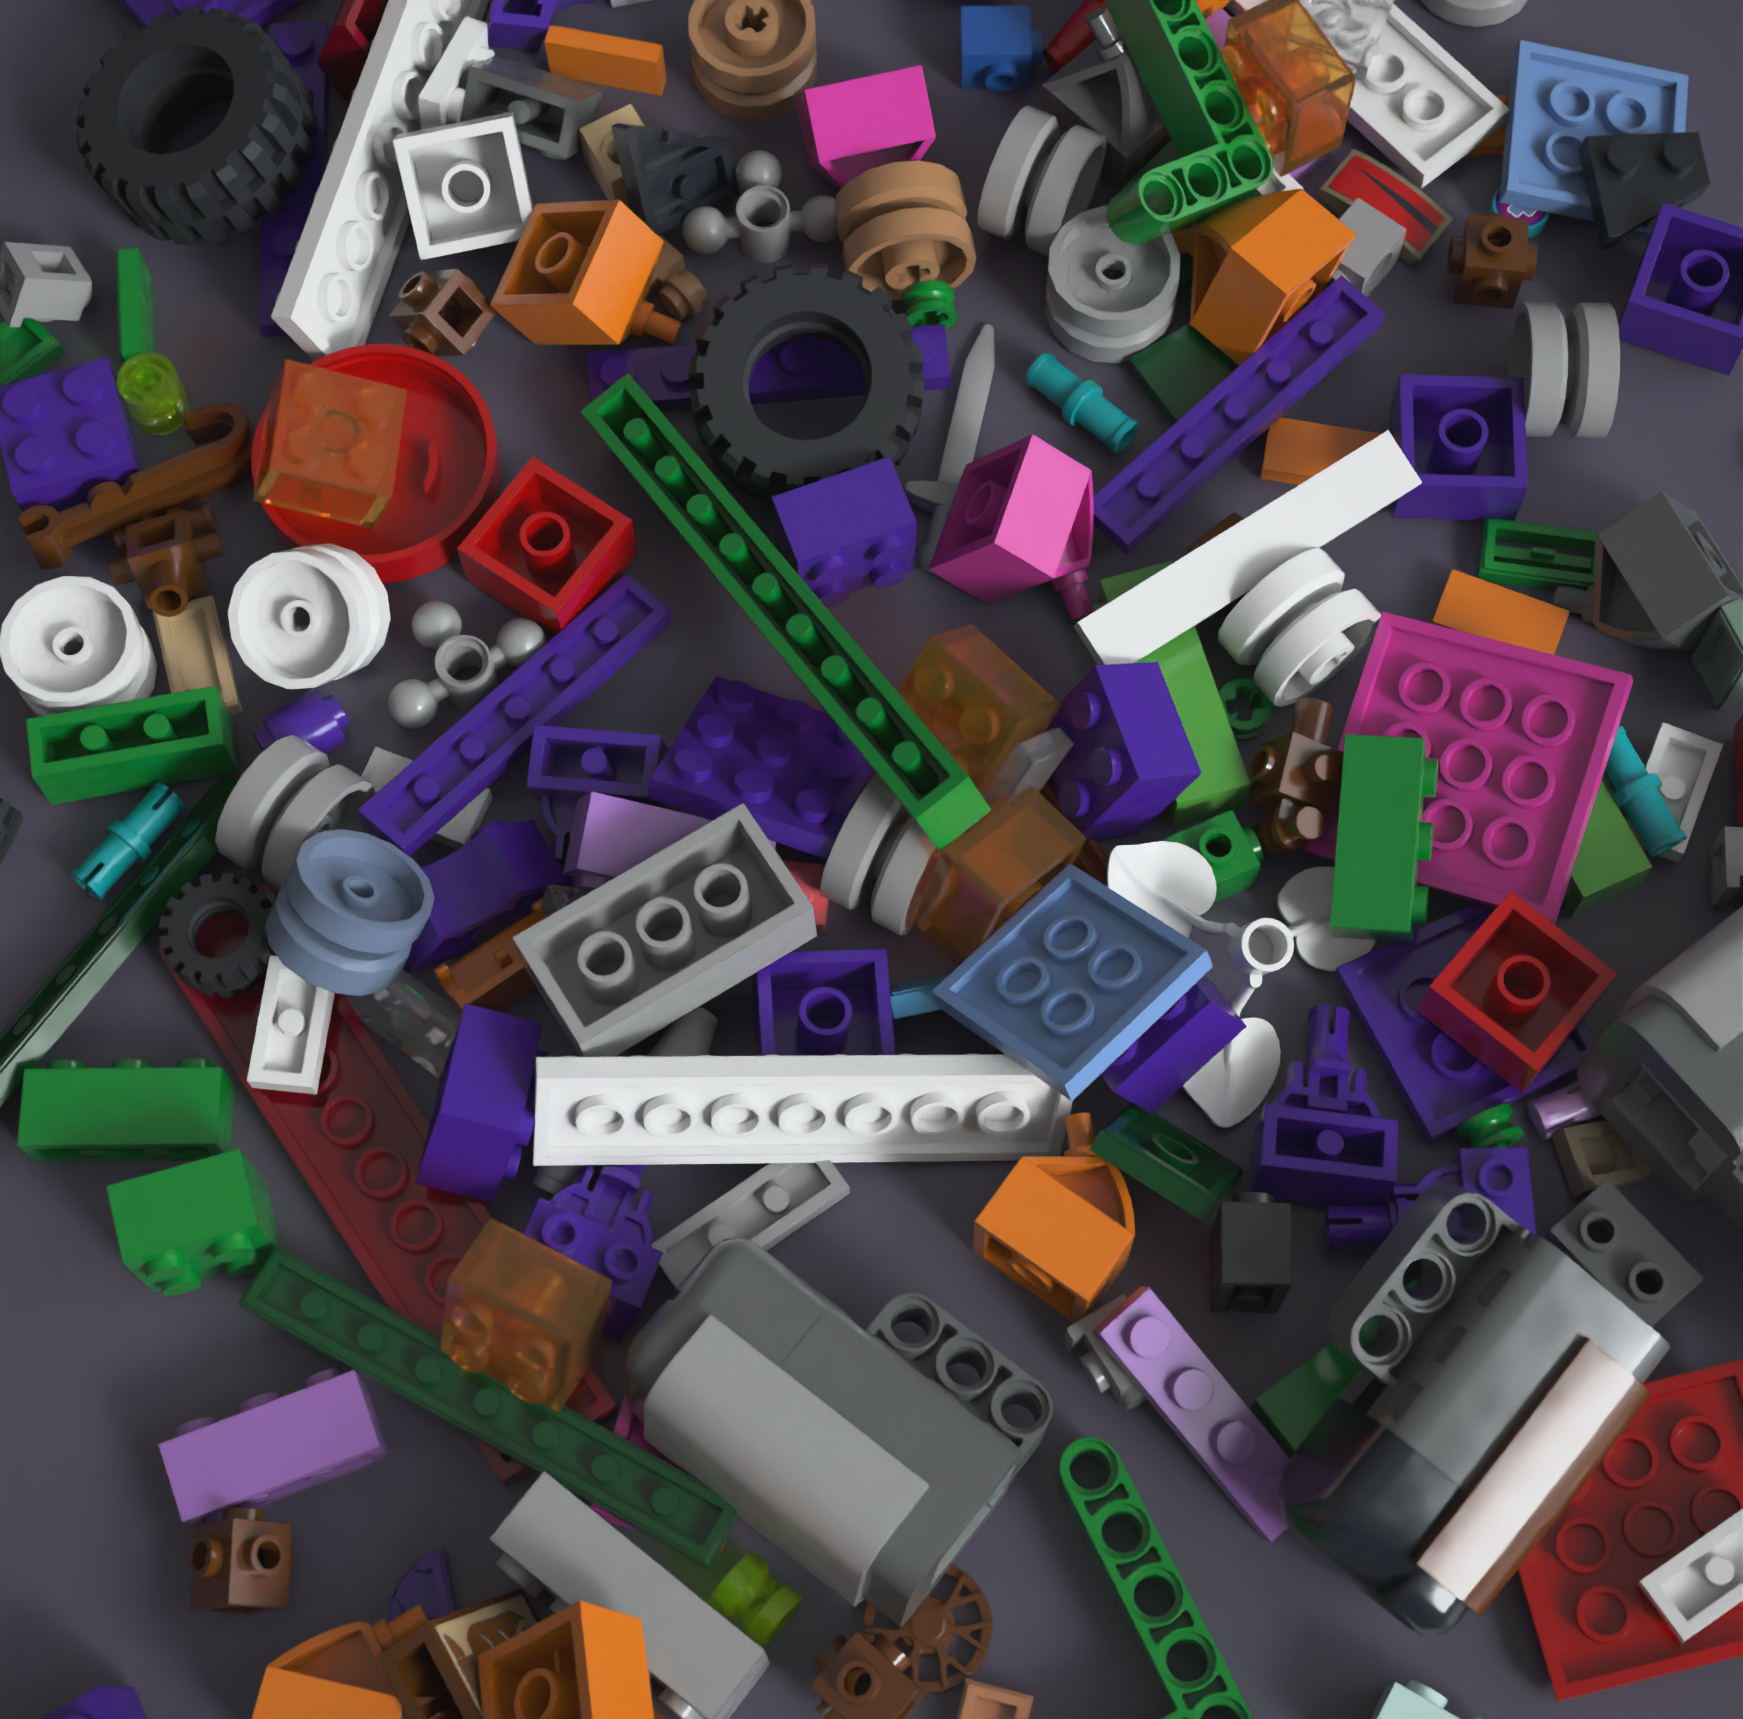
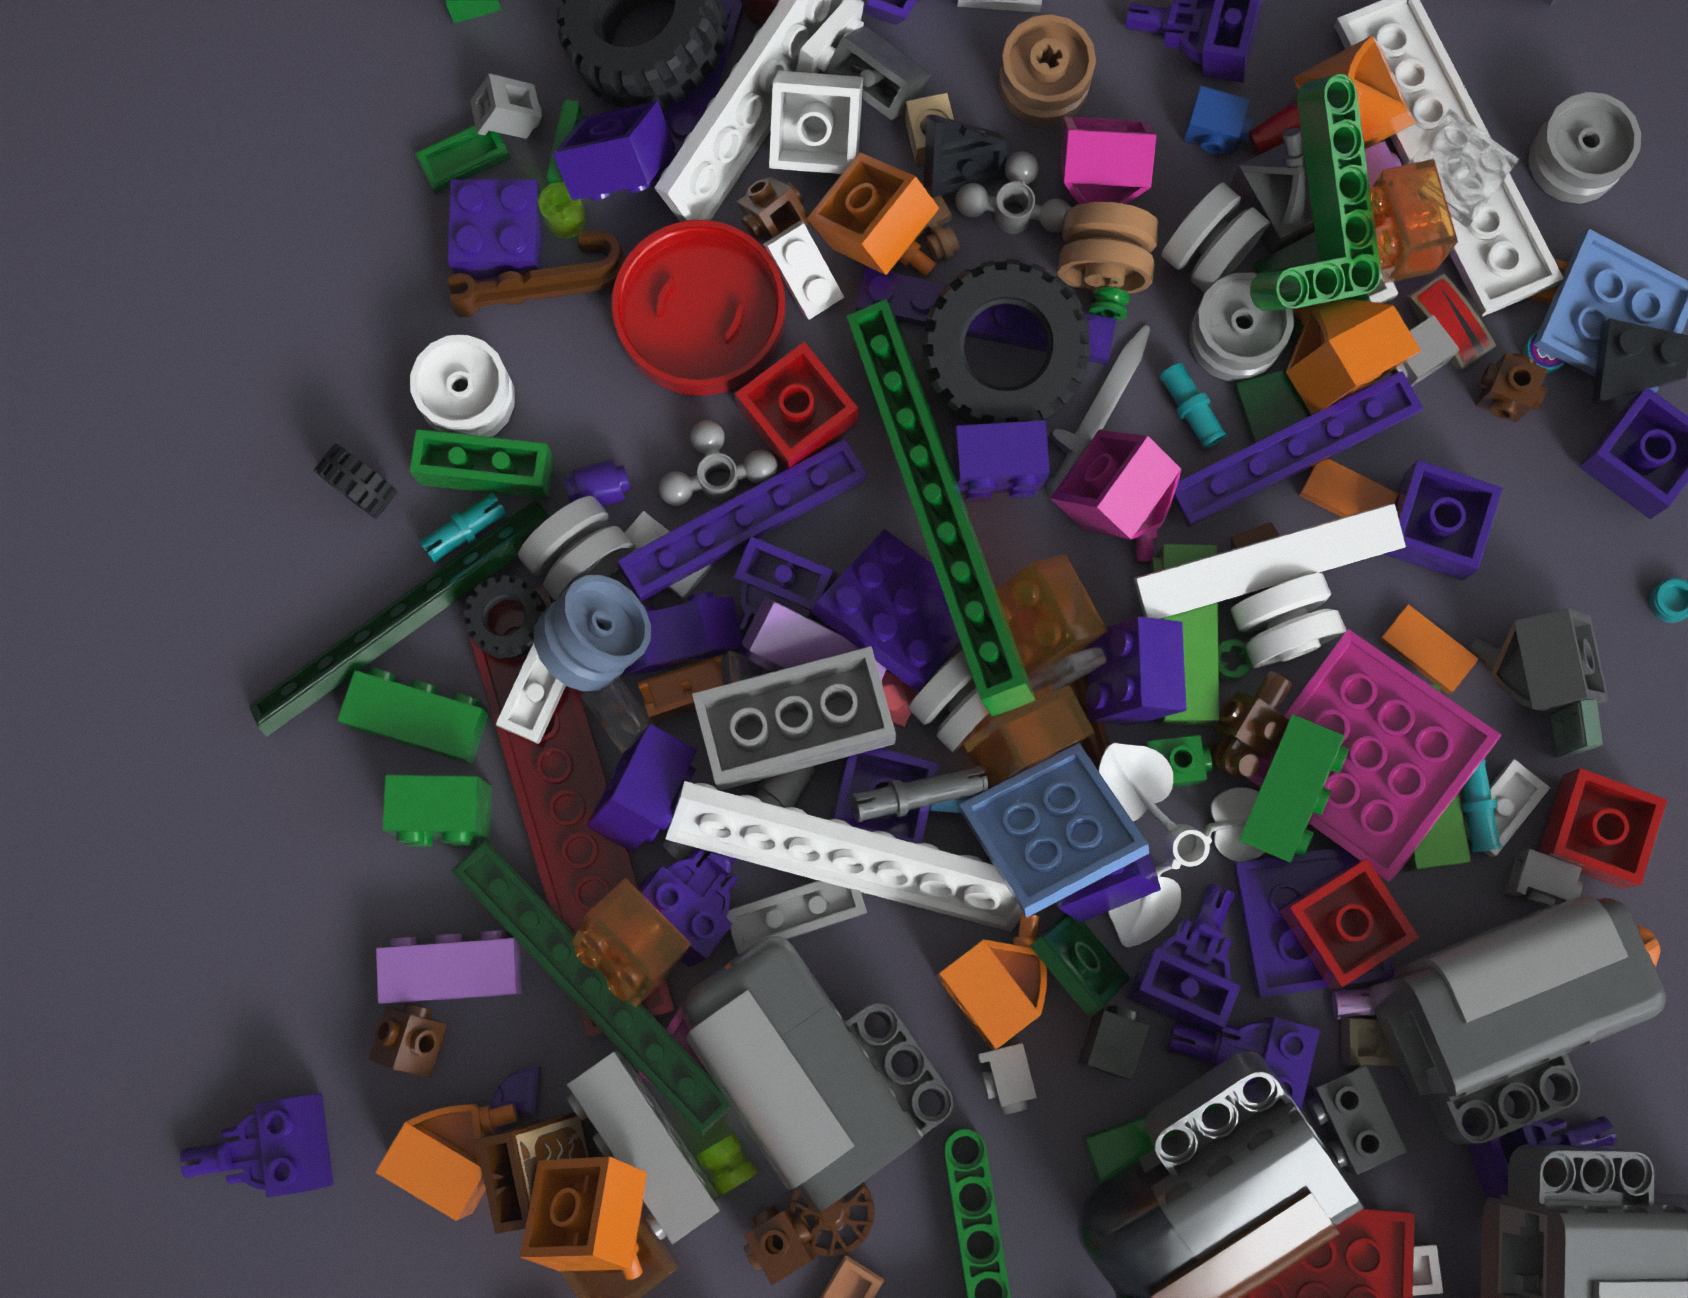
camera: 15 degrees right, 10 degrees up
(168, 556) = (540, 334): reddish brown piece -> none
(197, 651) = (542, 407): tan tile -> none
(204, 291) = (614, 151): none -> dark purple brick
(308, 615) = (622, 410): white wheel -> none
(330, 444) = (670, 290): clear orange brick -> none
(506, 376) = (804, 270): none -> white plate
(606, 60) = (940, 49): orange tile -> none
(849, 1001) = (901, 797): none -> dark grey pin
(1198, 1406) = (1048, 1131): medium lavender plate -> none
(1491, 1128) = (1300, 1005): green bush -> none
(1536, 566) = (1460, 624): green tile -> none
(1566, 367) = (1536, 486): light grey wheel -> none

